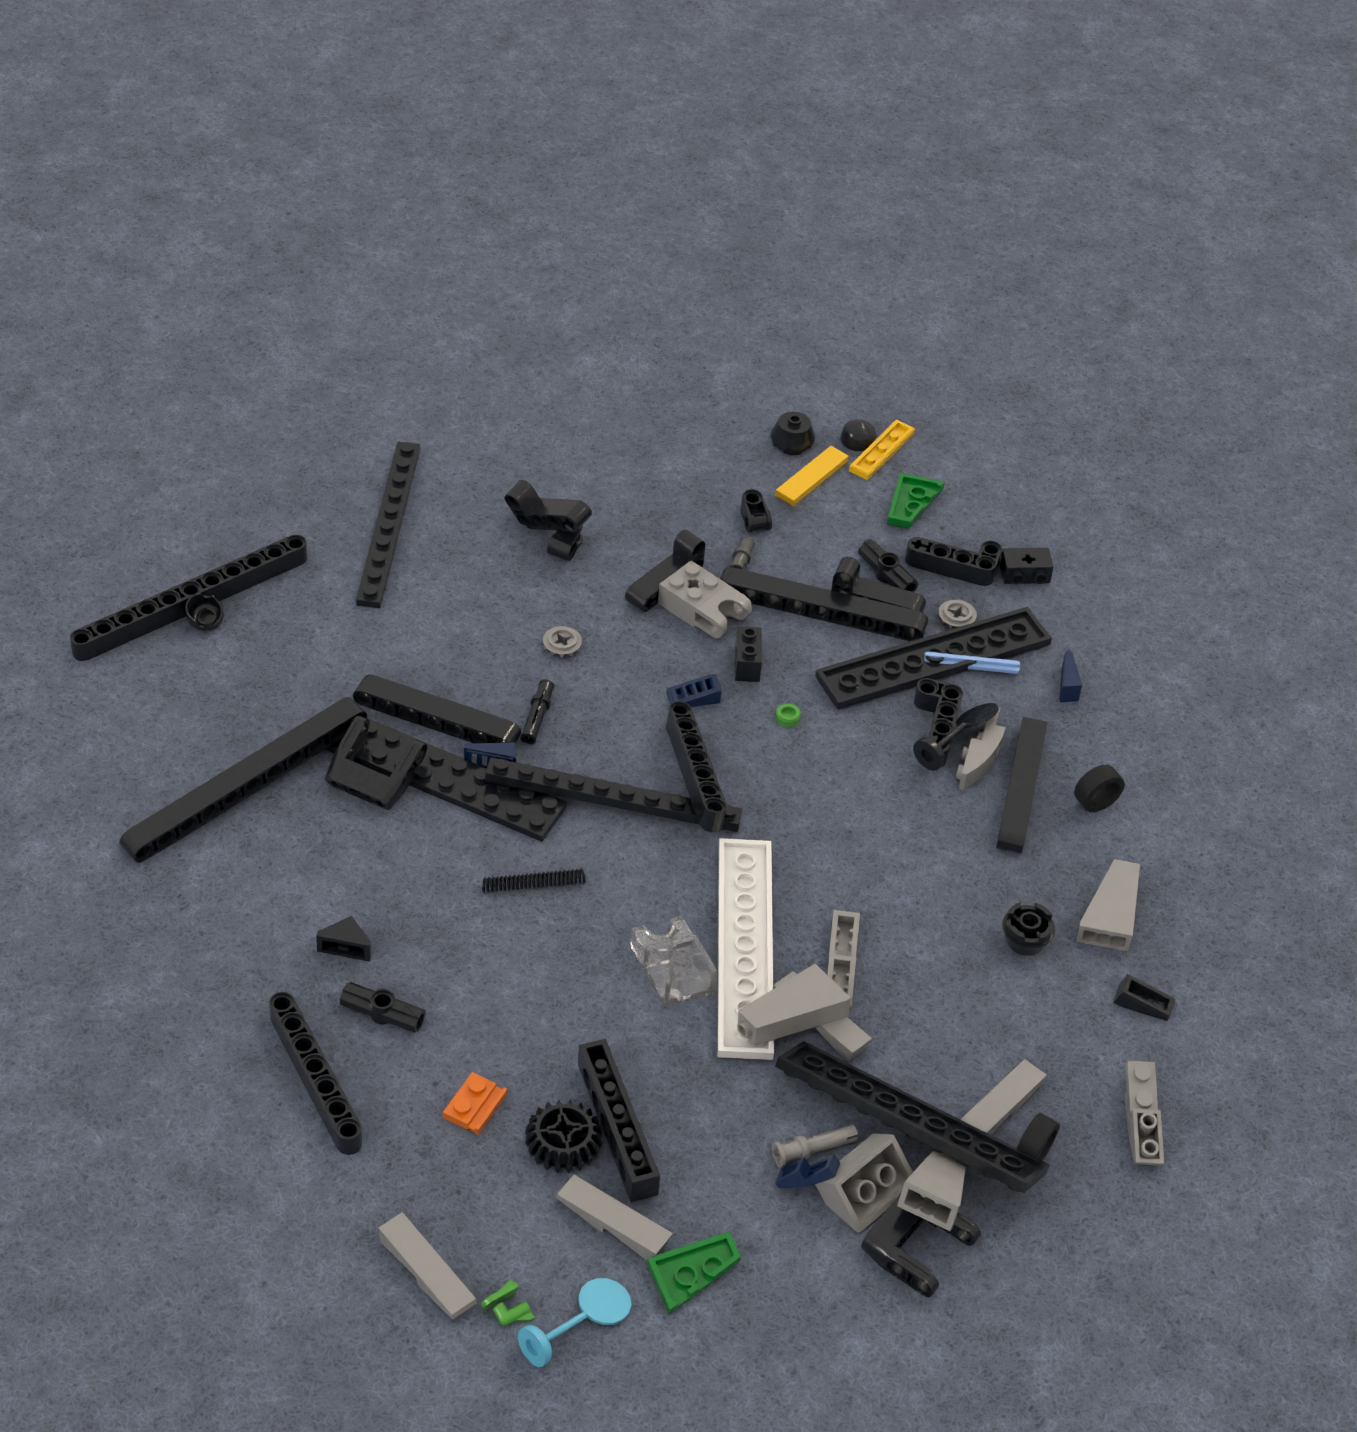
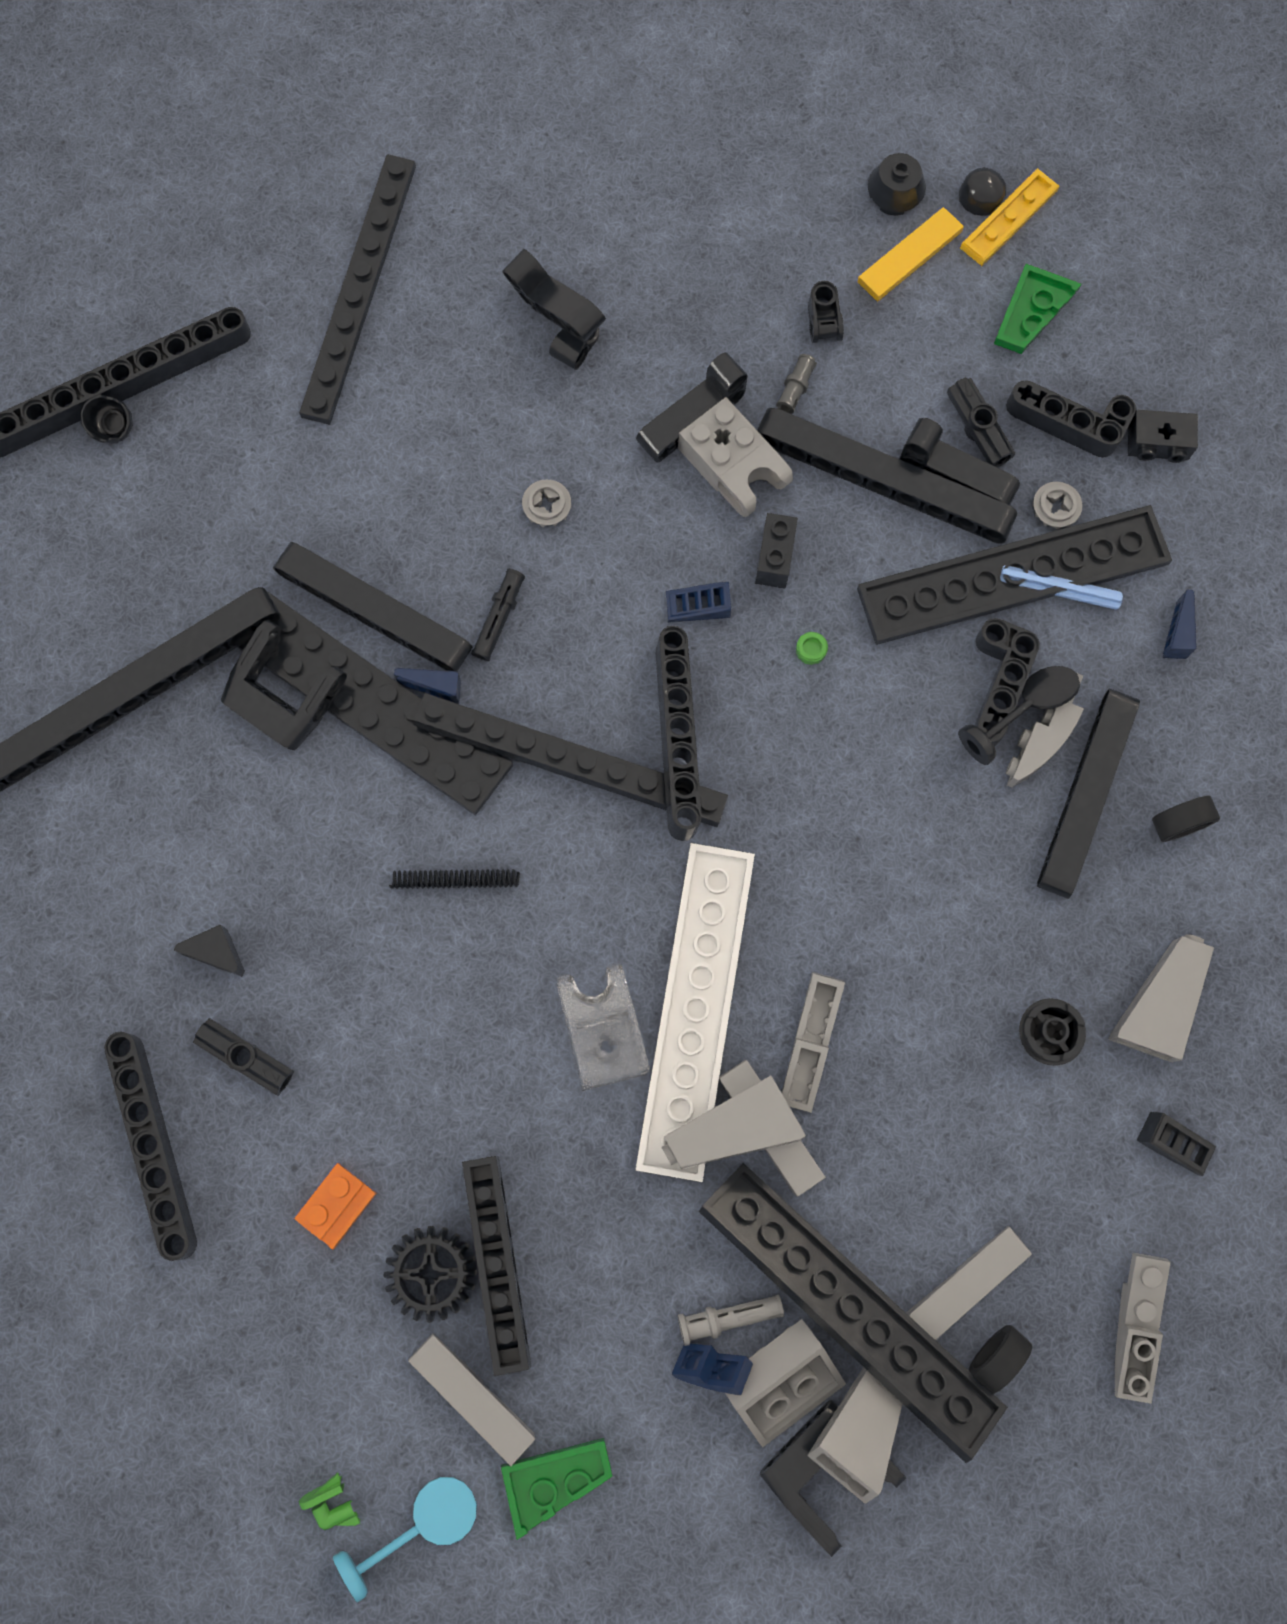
camera: 10 degrees right, 30 degrees up
(426, 1265) = (242, 1443): light grey slope -> none

